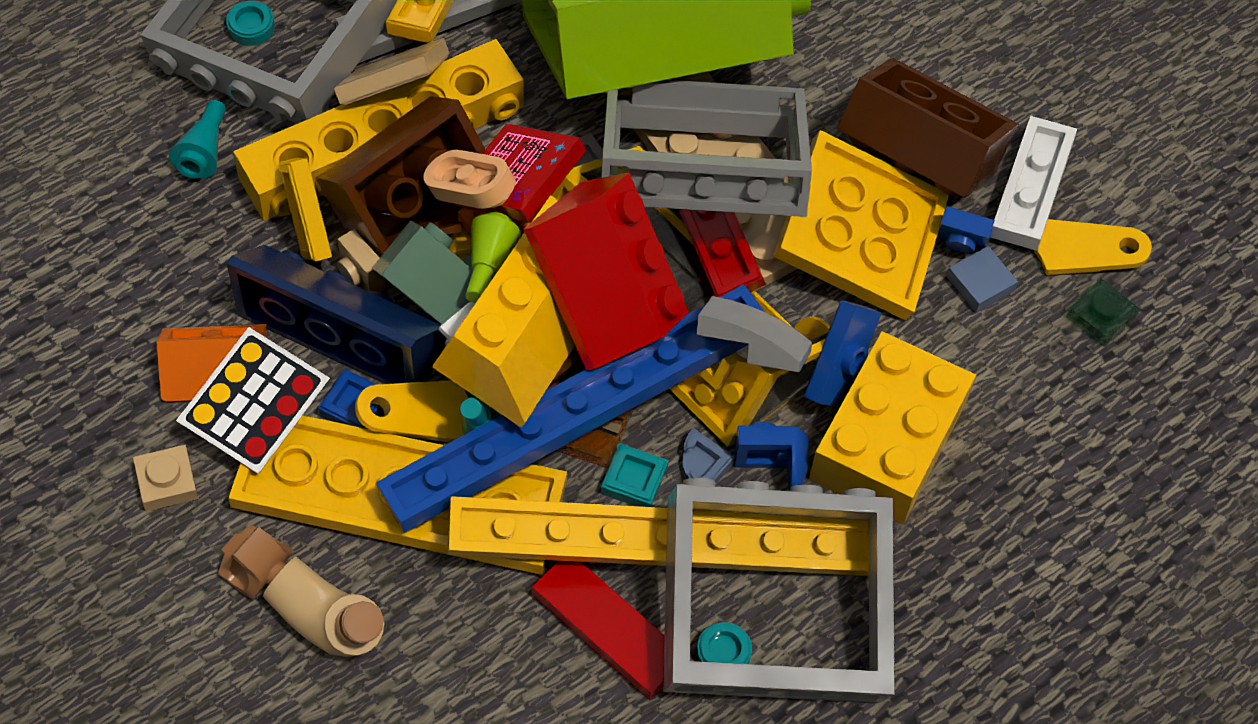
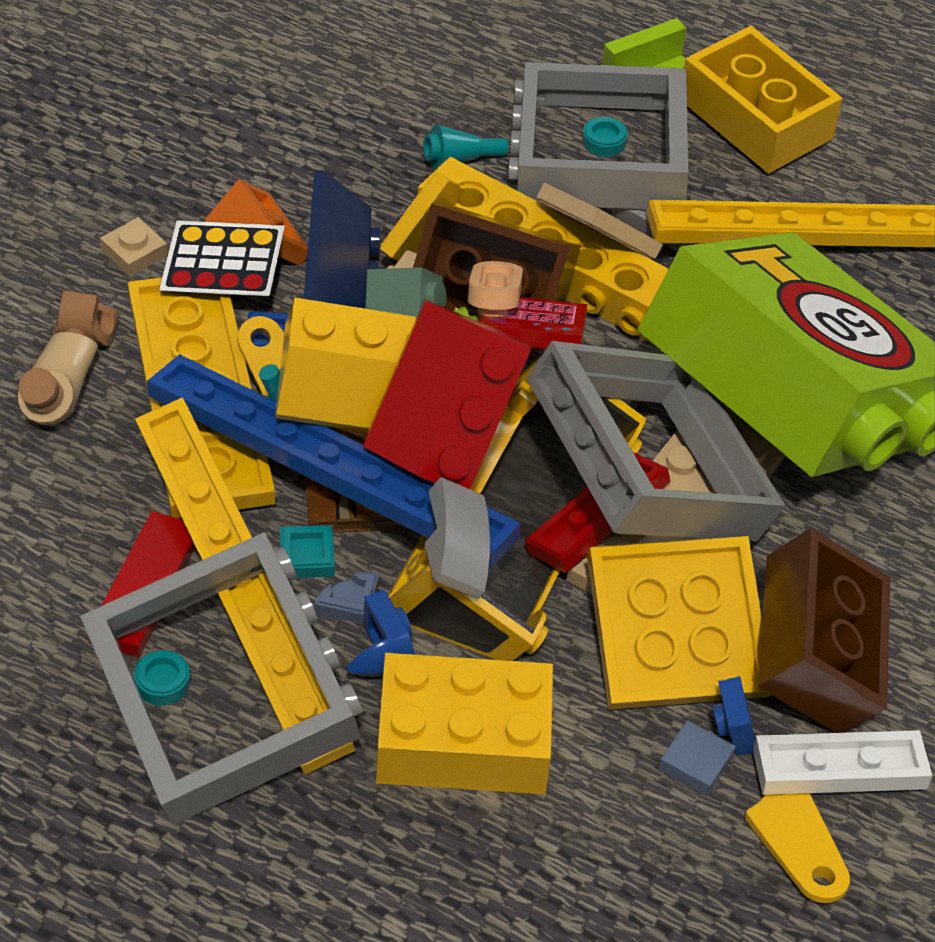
camera: 65 degrees right, 10 degrees down
(842, 353) = (523, 637): blue plate -> none
(1102, 312) = (727, 880): clear green plate -> none

